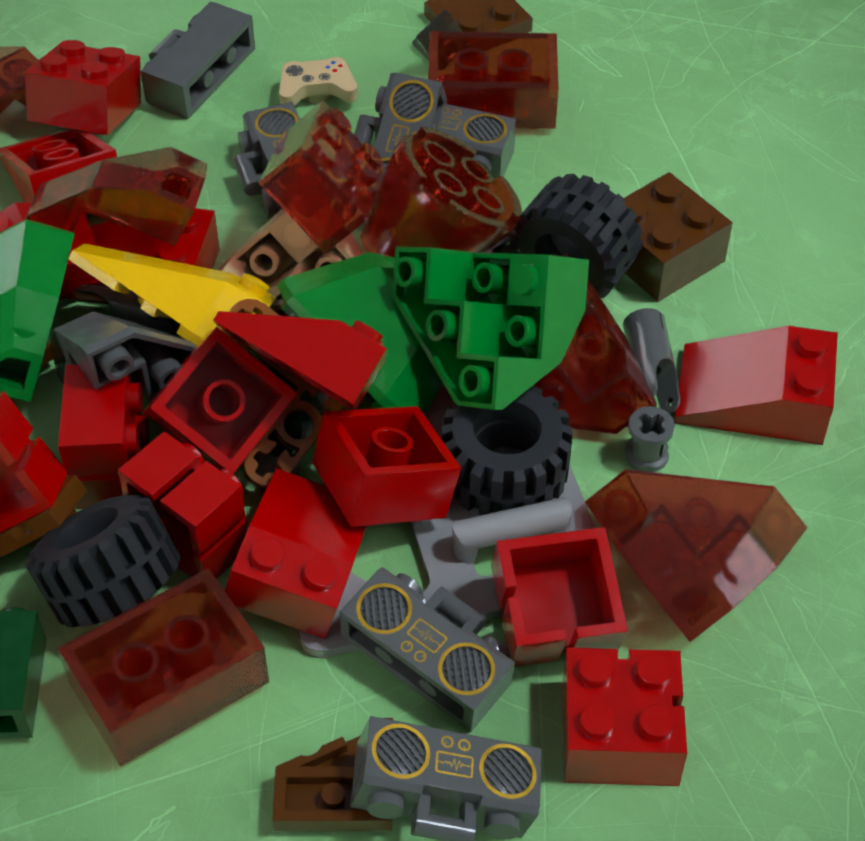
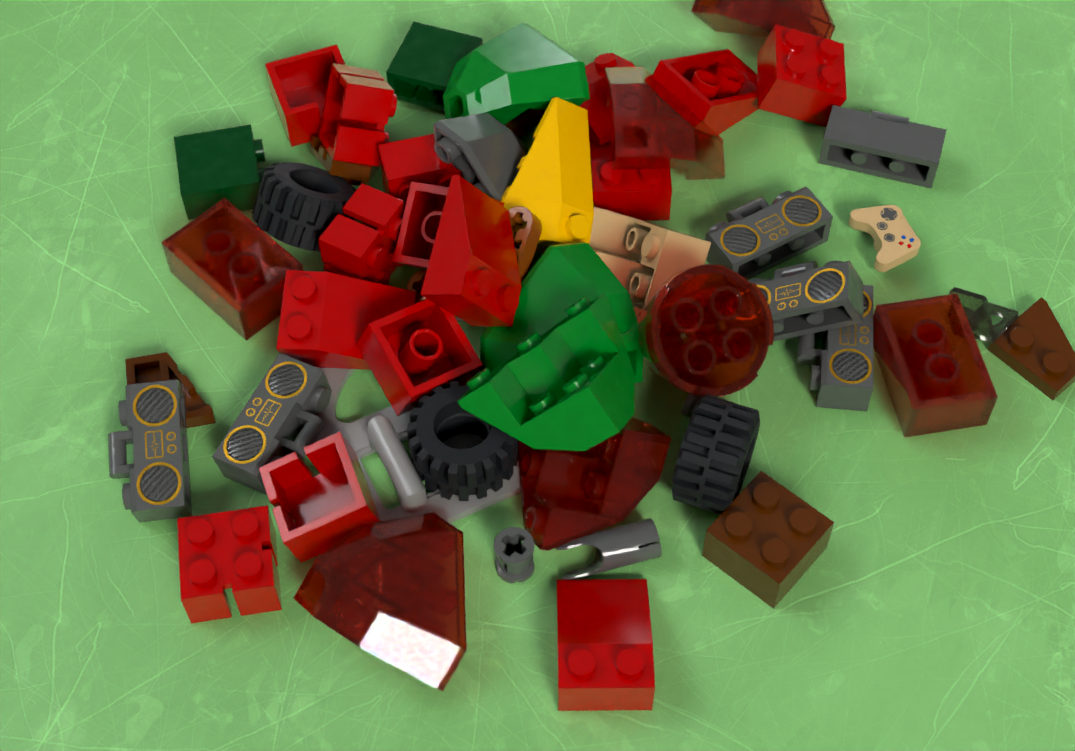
camera: 80 degrees right, 5 degrees up
(324, 176) = (688, 229): clear red brick -> none

